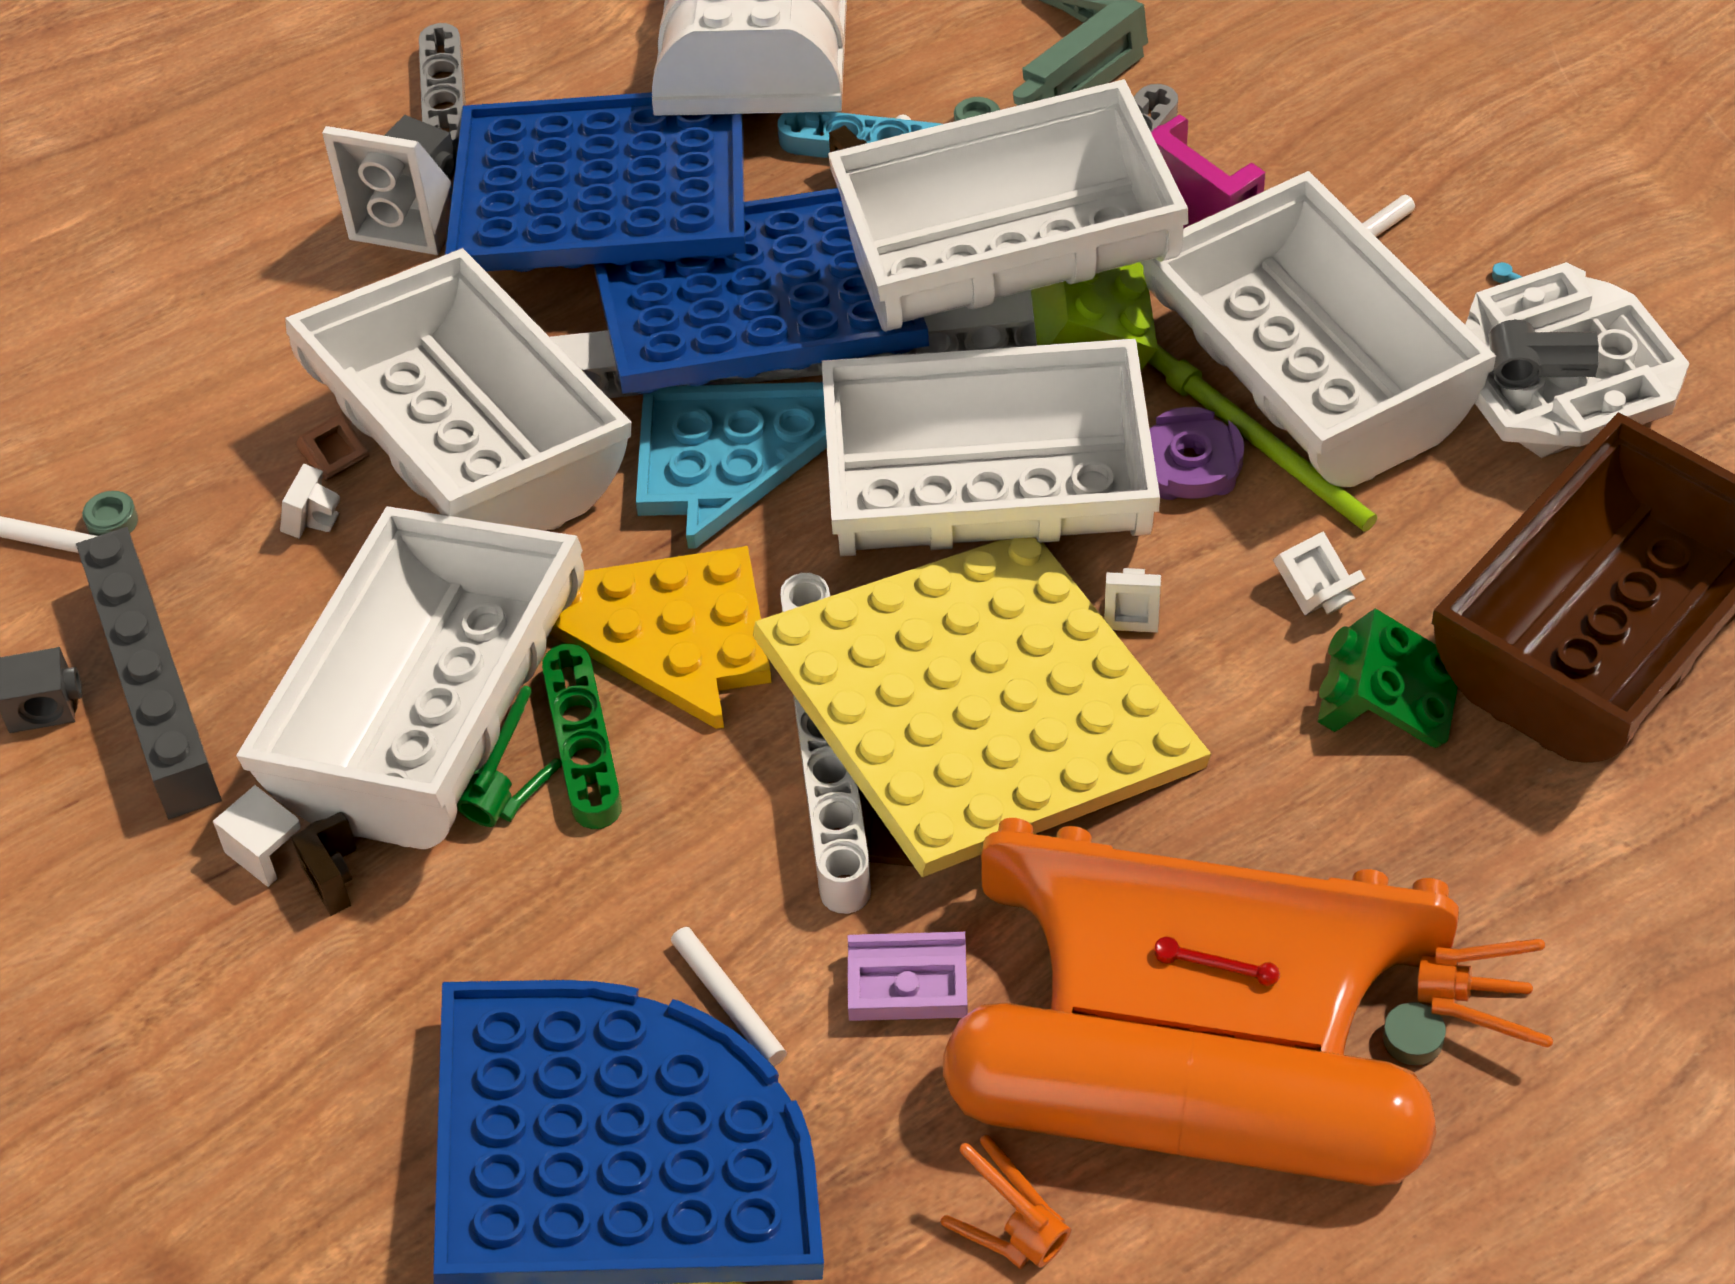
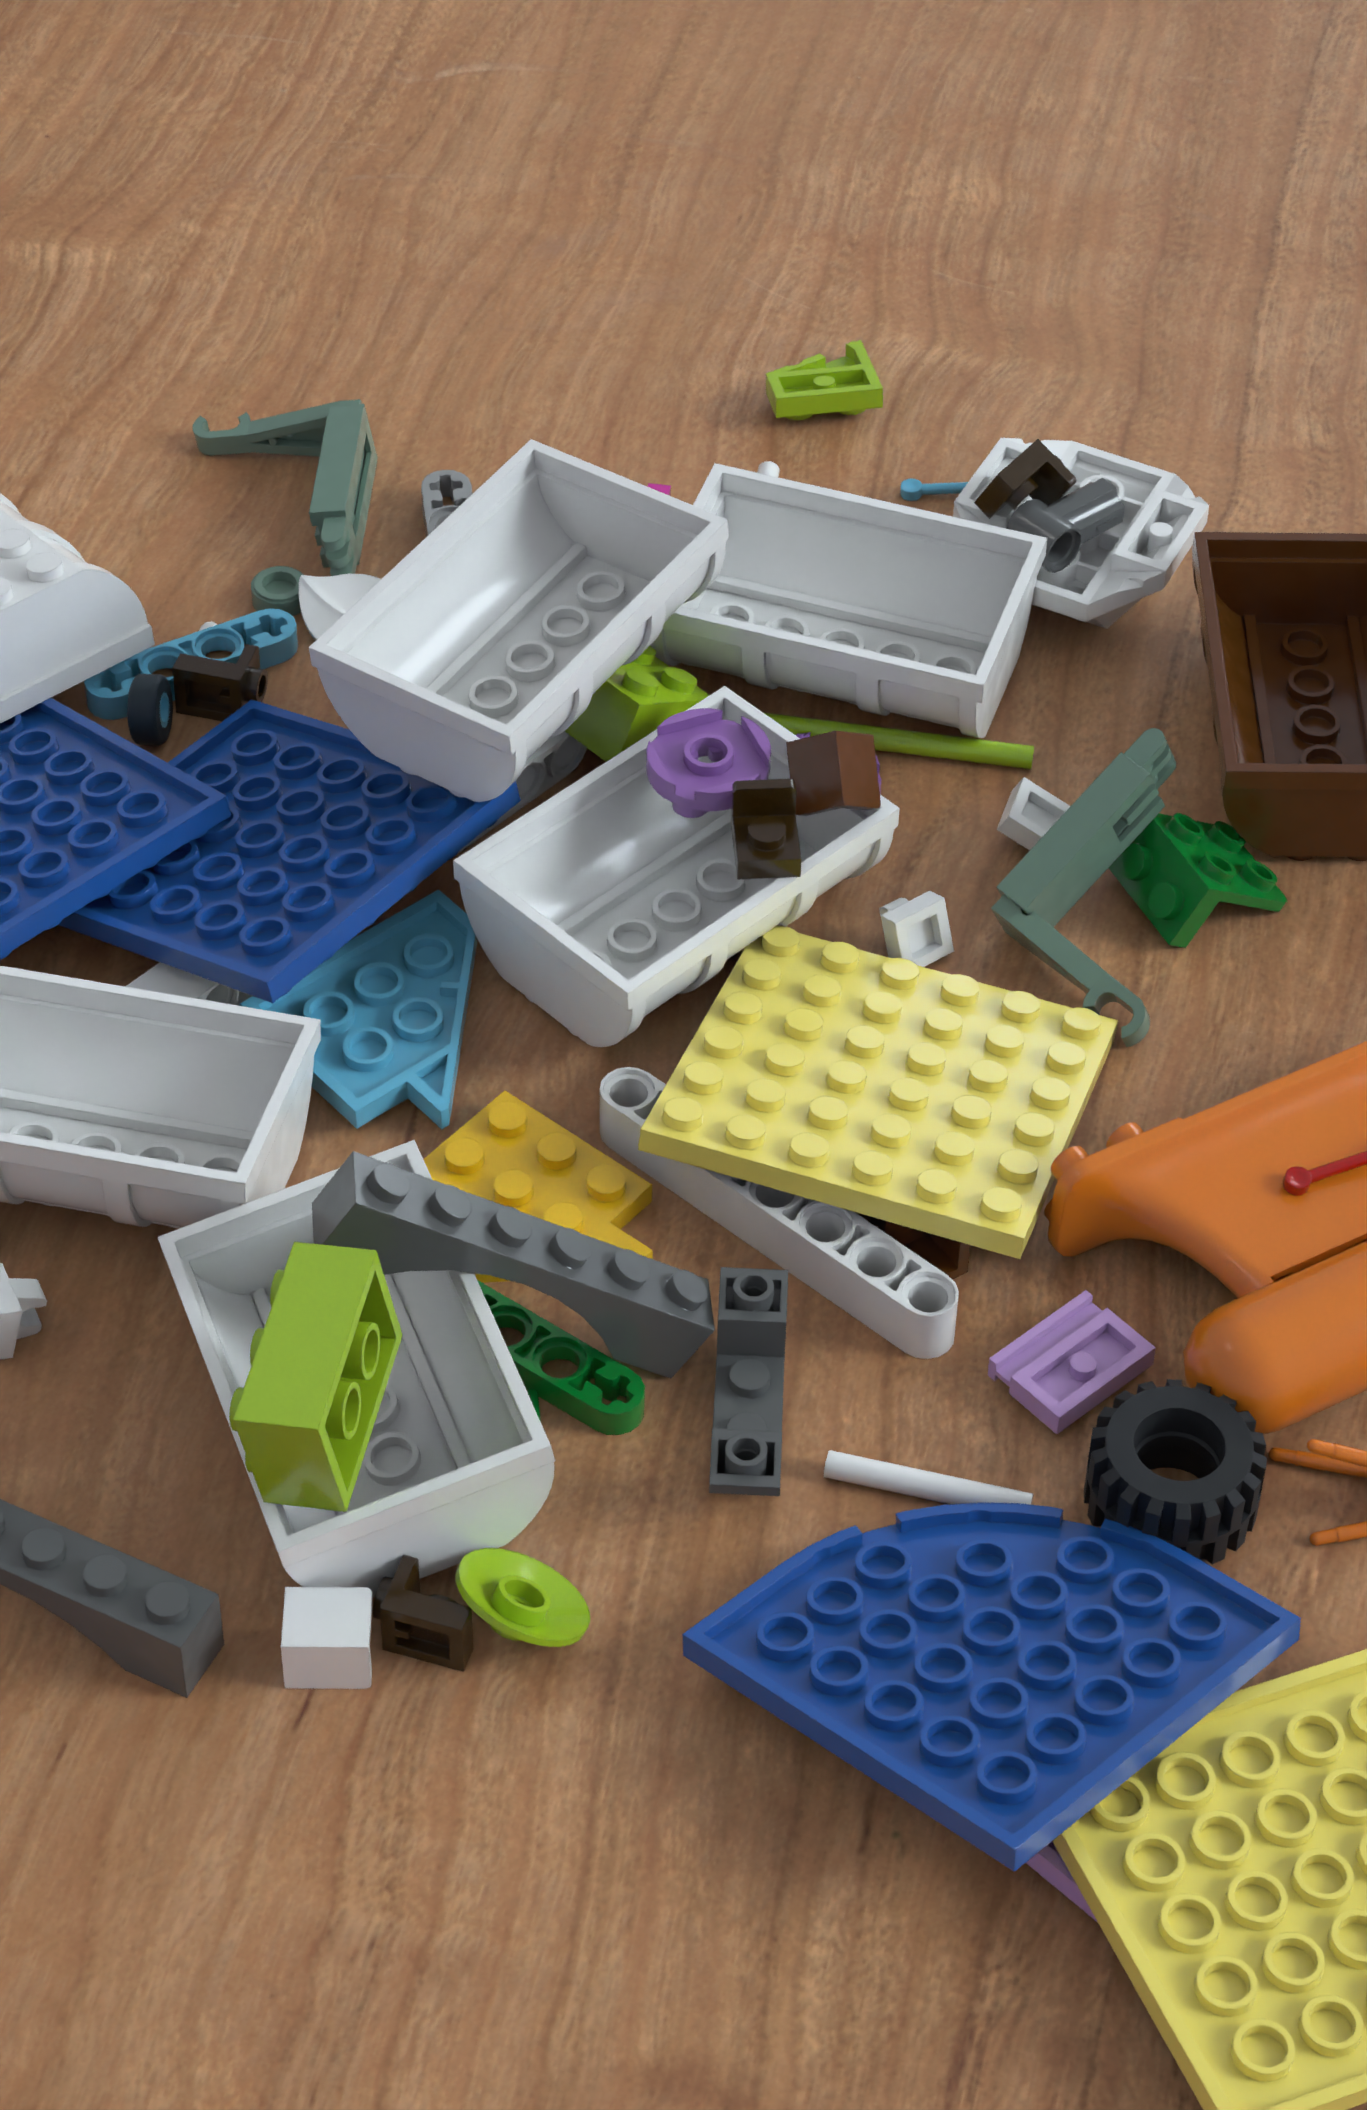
camera: 45 degrees left, 5 degrees down
(331, 653) = (317, 1376): none -> lime brick
(401, 876) = (522, 1597): none -> lime dish
(495, 591) = (636, 1304): none -> dark grey arch
(649, 883) = (749, 1382): none -> dark grey slope
(799, 155) = (150, 709): none -> black wheel
(866, 1061) = (1184, 1432): none -> black tyre
(1035, 459) = (765, 829): none -> dark brown bracket
(1051, 409) = (697, 786): none -> medium lavender plate
(1123, 444) = (834, 772): none -> reddish brown panel
(1282, 613) = (1074, 858): none -> sand green hinge
(1514, 159) = (819, 387): none -> lime wing
(1525, 297) = (1032, 474): none -> dark brown bracket

